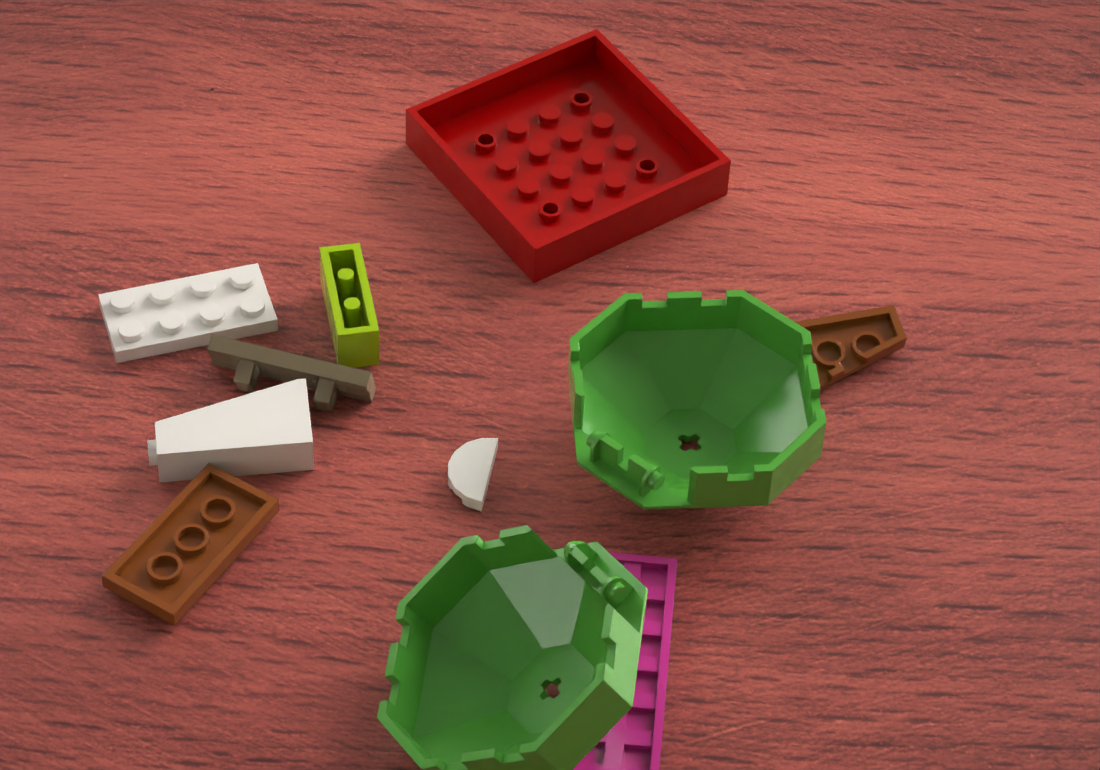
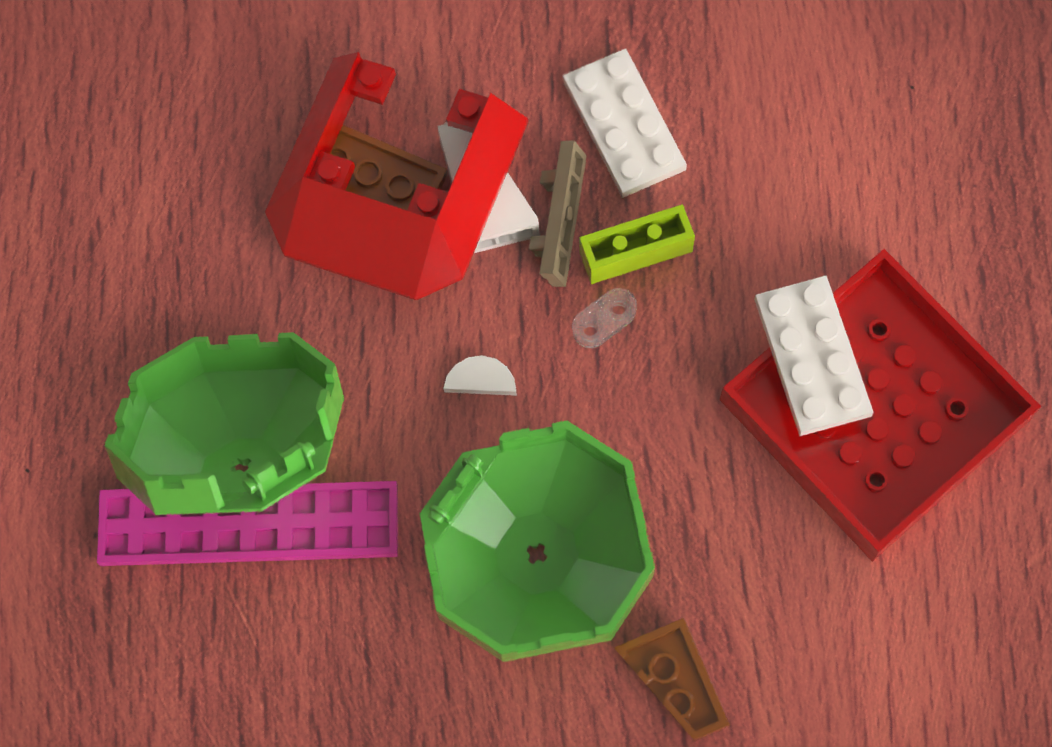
camera: 90 degrees right, 25 degrees up
(268, 555) = (373, 241): none -> red slope
(431, 359) = (603, 319): none -> clear plate
(515, 172) = (813, 355): none -> white plate

